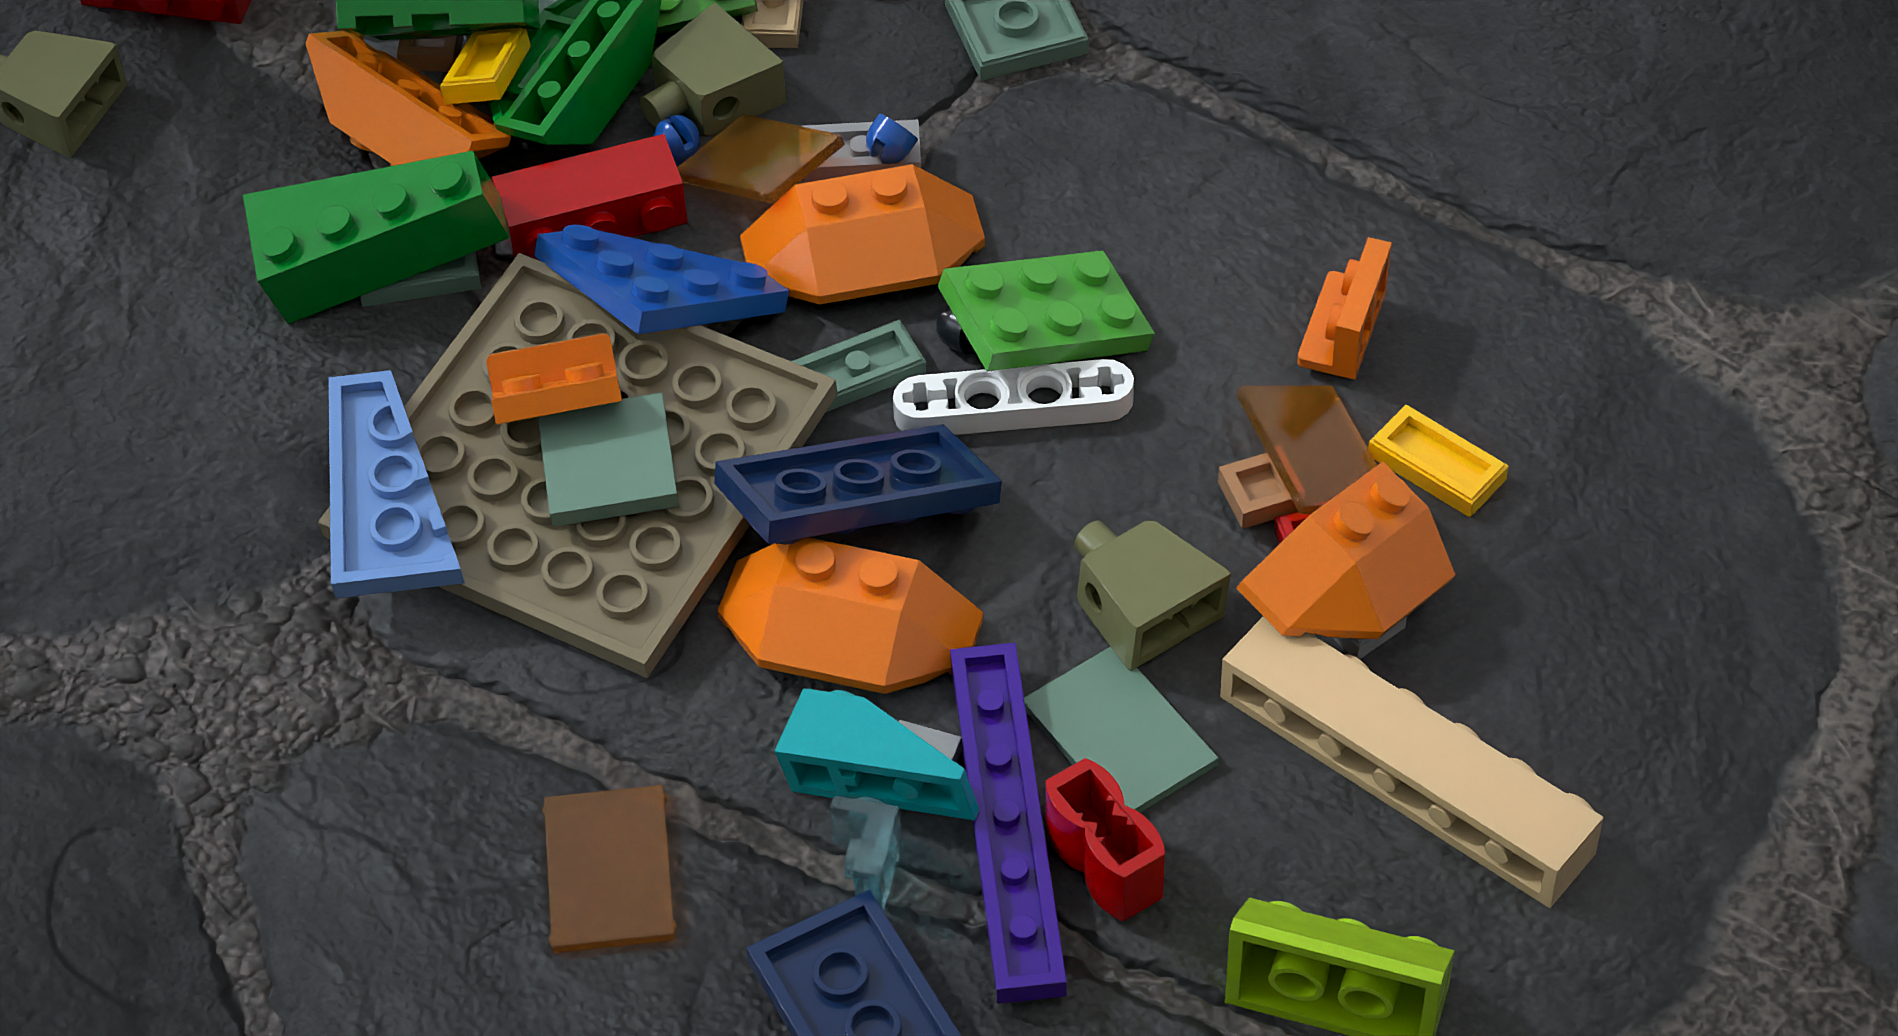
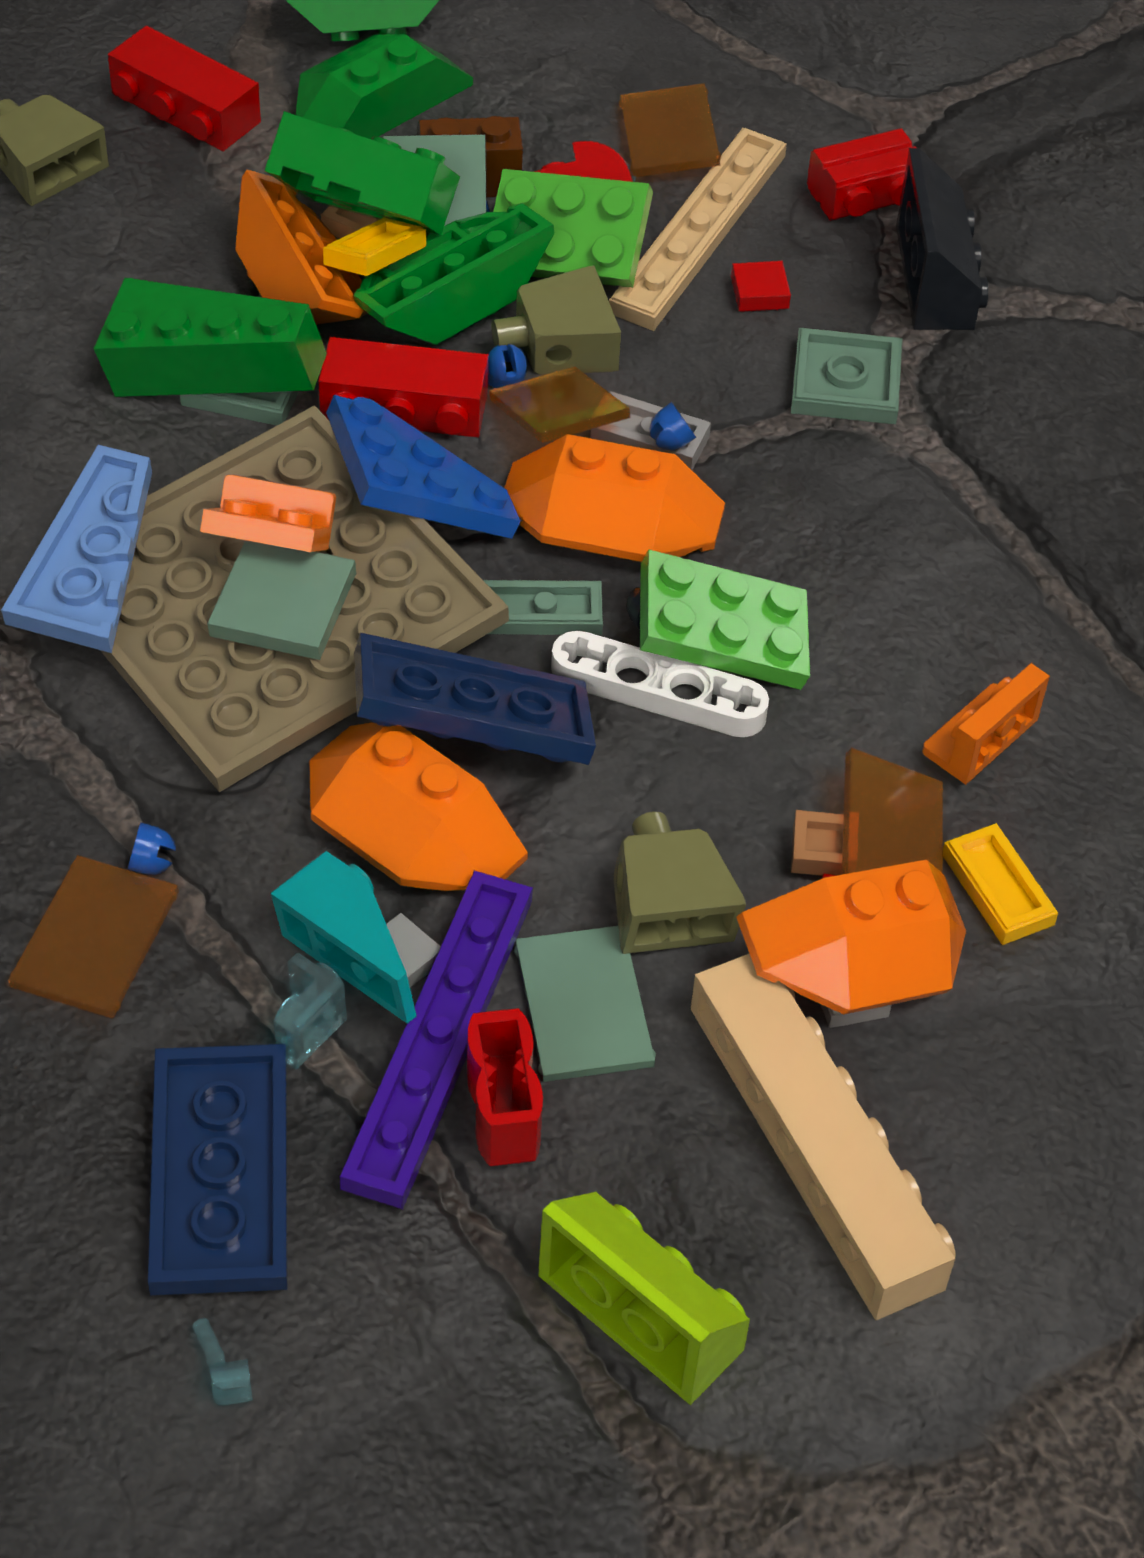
camera: 20 degrees right, 0 degrees up
(613, 762) = (146, 847): none -> blue hinge

